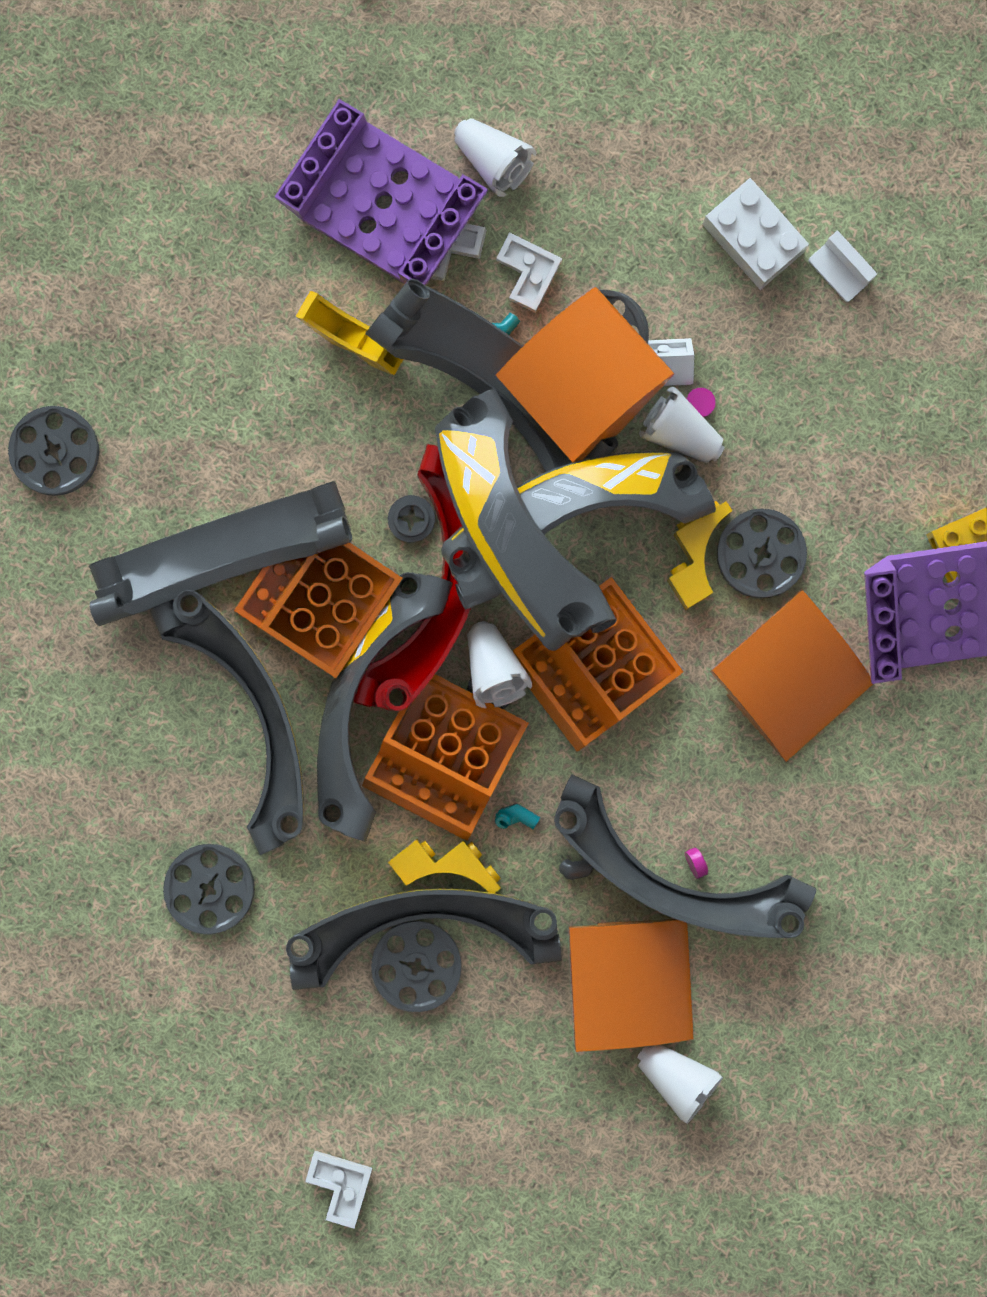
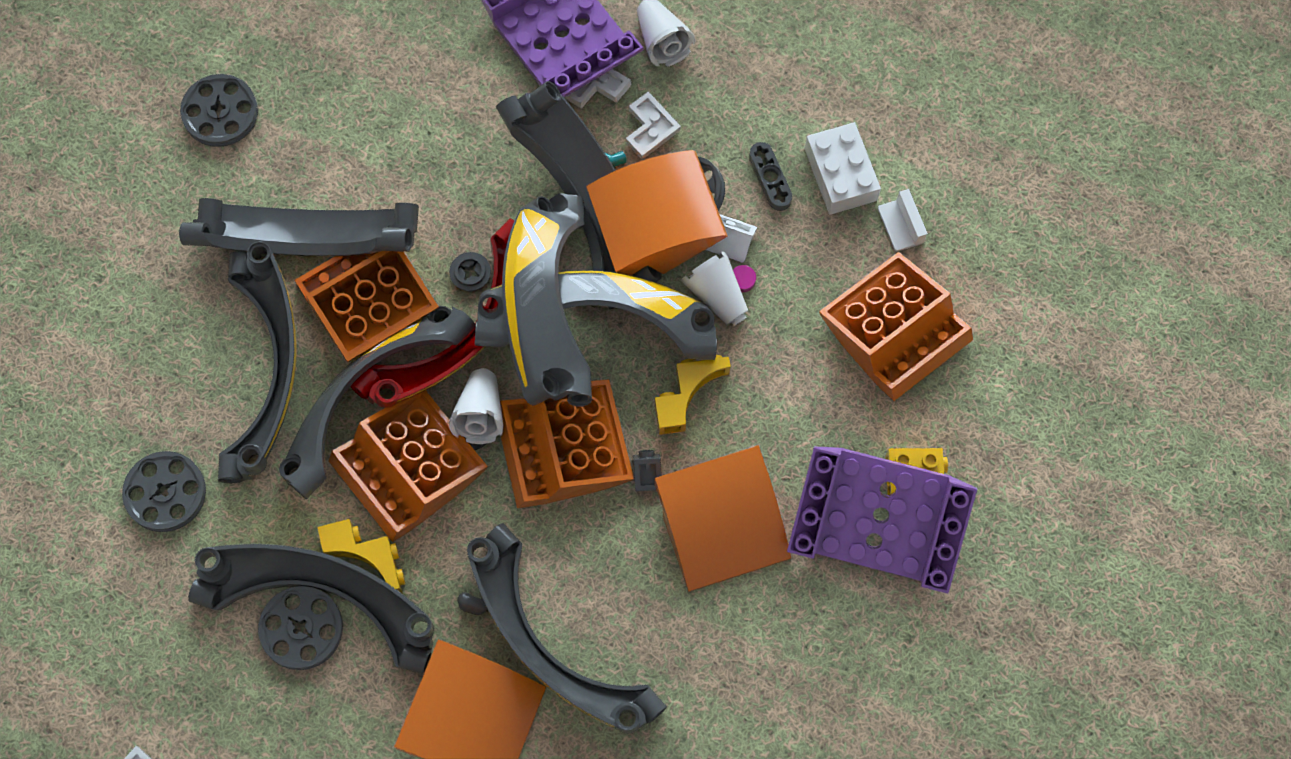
camera: 20 degrees right, 15 degrees down
(345, 332) = (483, 111): yellow arch -> none
(515, 814) = (442, 537): teal arm -> none
(660, 263) = (760, 170): none -> dark grey beam
(692, 655) = (646, 468): none -> dark grey bracket
(696, 863) = (574, 641): dark pink tile -> none
(767, 566) = (740, 402): dark grey wedge -> none
(883, 387) = (897, 325): none -> orange slope

